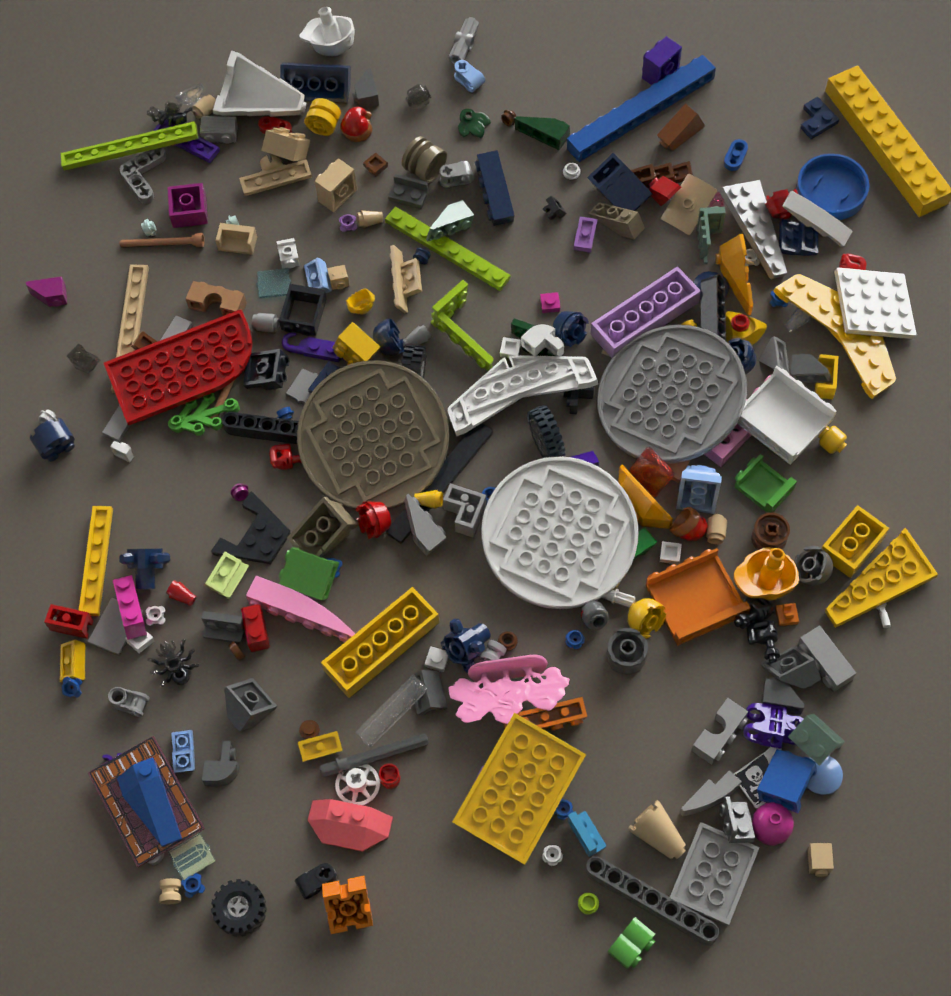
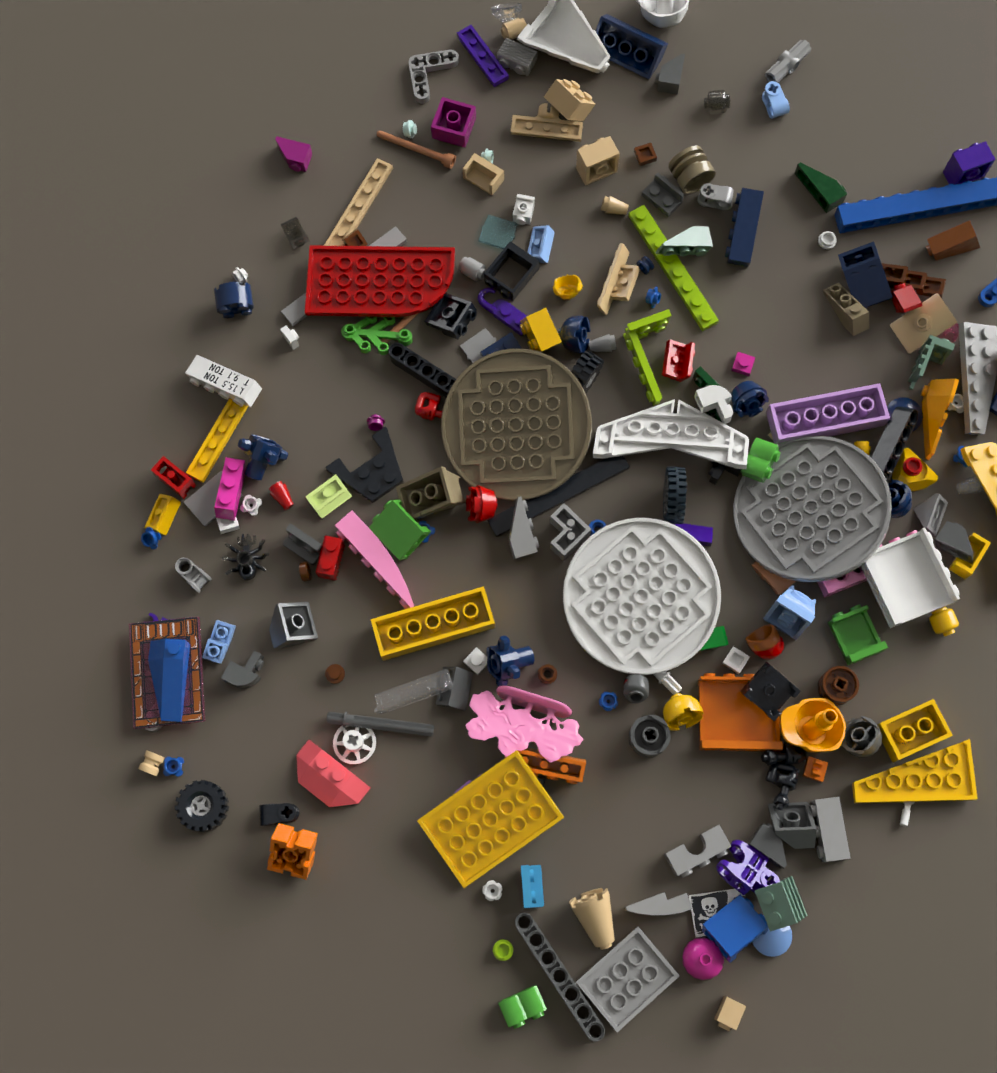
camera: 25 degrees right, 10 degrees up
(77, 514) = (223, 381): none -> white brick
(129, 146) = (428, 40): lime plate -> none
(171, 113) = (479, 23): animal -> none
(191, 856) = (184, 739): clear light blue piece -> none
(202, 295) = (427, 217): medium nougat arch -> none
(273, 123) = (569, 74): red plate -> none
(285, 413) = (449, 366): blue plate -> none
(320, 746) = (337, 693): yellow plate -> none
(322, 117) = (617, 85): yellow wheel -> none
(338, 277) = (559, 252): tan bracket -> none
(347, 219) = (592, 197): medium lavender plate -> none
(356, 124) = (646, 106): red piece -> none
(389, 772) = (381, 748): red wheel -> none
(430, 499) = (540, 508): yellow cone -> none
(442, 279) = (653, 297): none -> blue plate
(472, 125) = (756, 153): dark green plate -> none
(491, 322) = (678, 360): none -> red bracket
(493, 652) = (523, 680): light grey wheel -> none
(508, 117) = (793, 159): reddish brown plate -> none
(510, 347) = (684, 392): white plate -> none
(555, 207) = (793, 269): black tile -> none
(568, 809) = (526, 857): blue plate -> none
(585, 234) = (809, 310): medium lavender plate -> none
(607, 373) = (760, 460): none -> bright green brick
(647, 509) = (733, 606): light orange wedge -> none
(651, 472) = (753, 576): clear red plate -> none
(713, 561) = (769, 690): none -> black panel
(716, 529) = (789, 657): tan brick -> none
(736, 821) = (671, 942): bracket -> none

